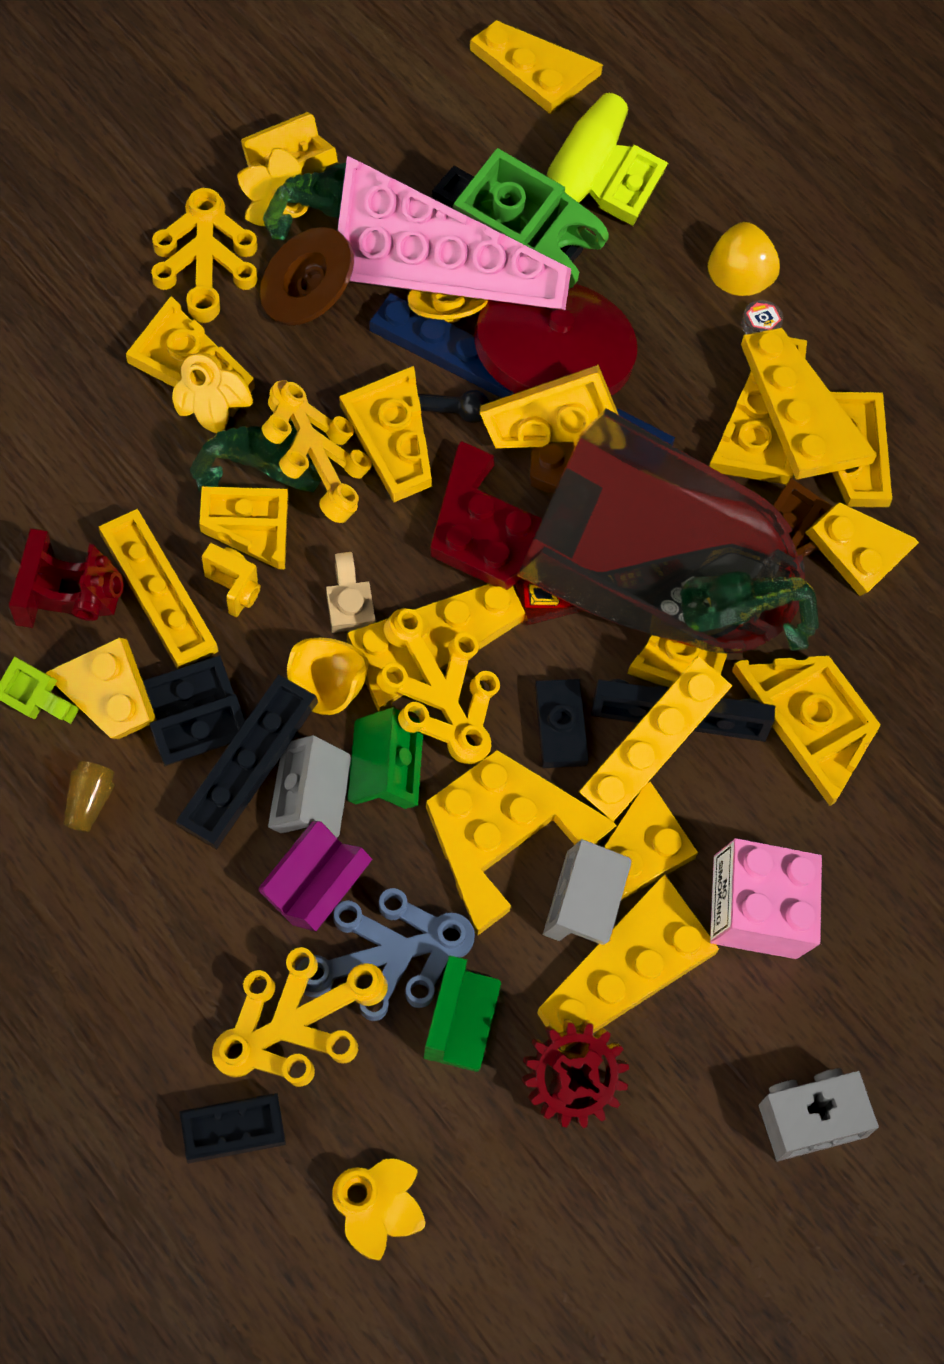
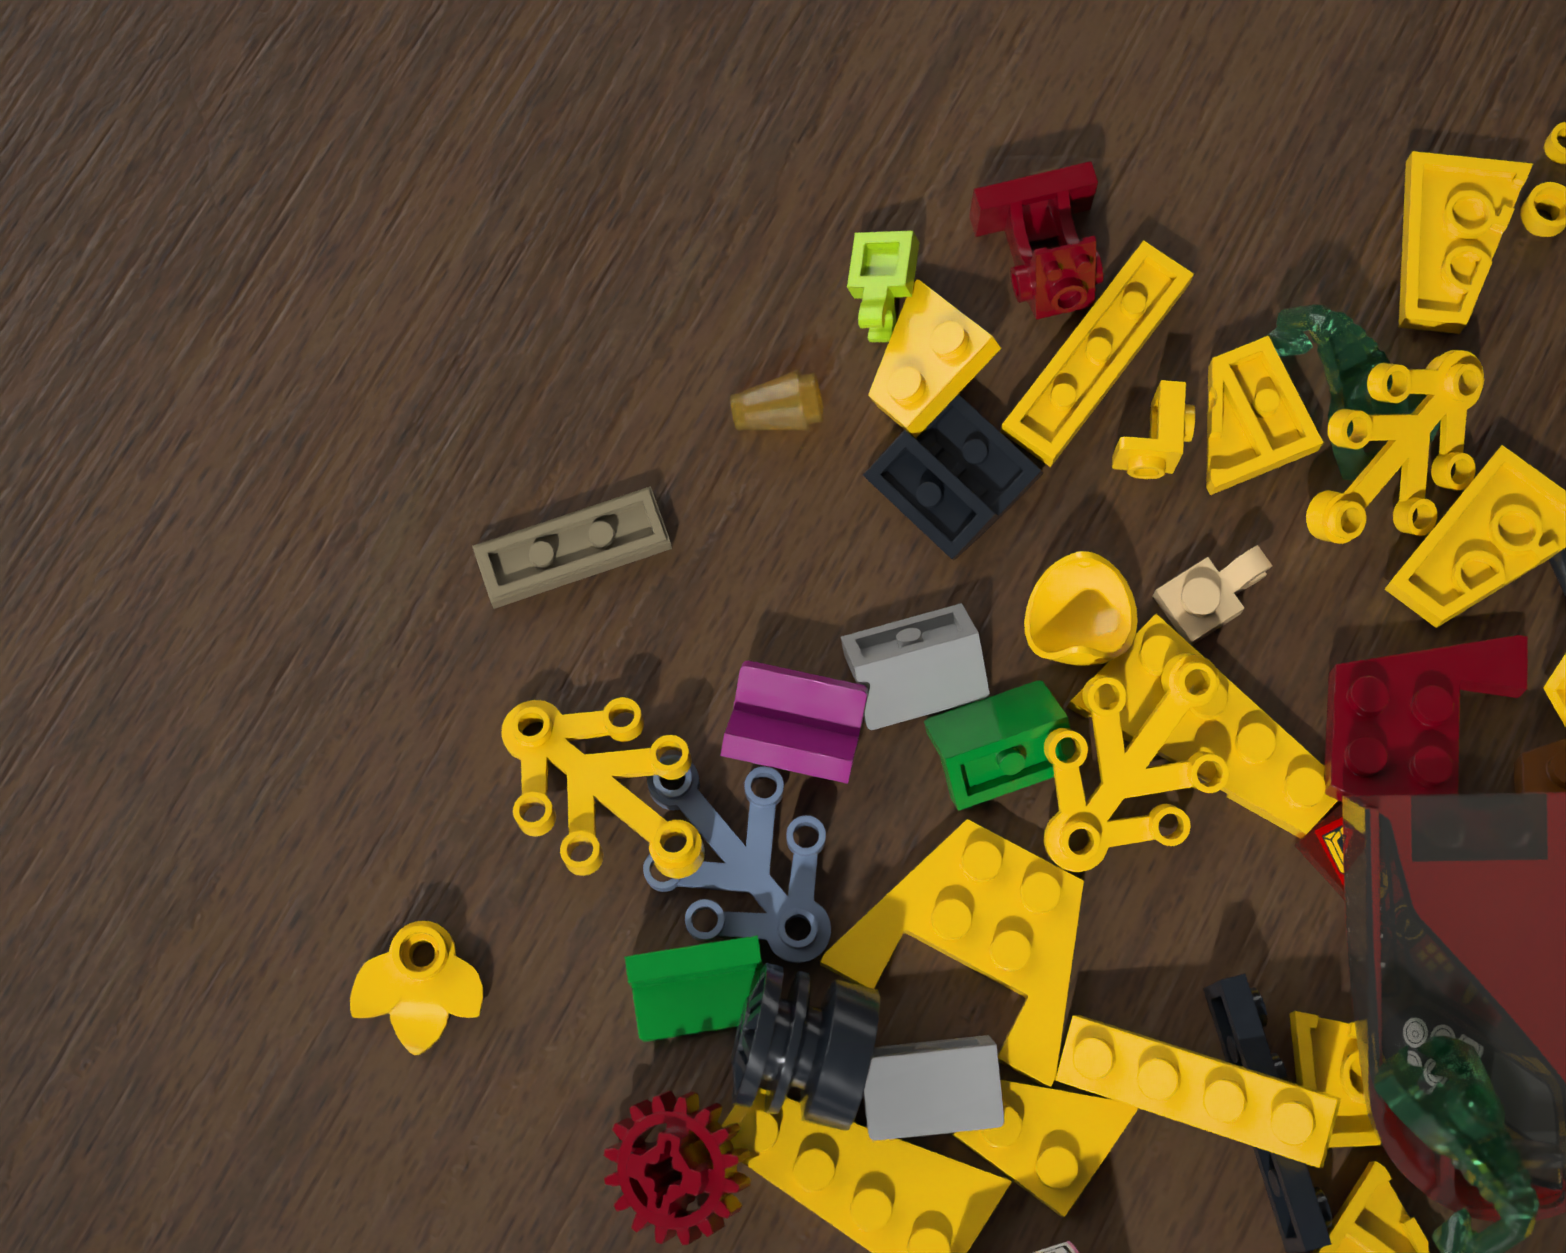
camera: 75 degrees right, 10 degrees up
(115, 977) = (572, 547): none -> dark tan tile
(211, 397) = (1412, 277): yellow plate -> none
(232, 1128) = (440, 769): black plate -> none
(247, 761) = (913, 570): black plate -> none
(535, 953) = (806, 1047): none -> black wheel
(561, 723) = (1168, 951): black plate -> none

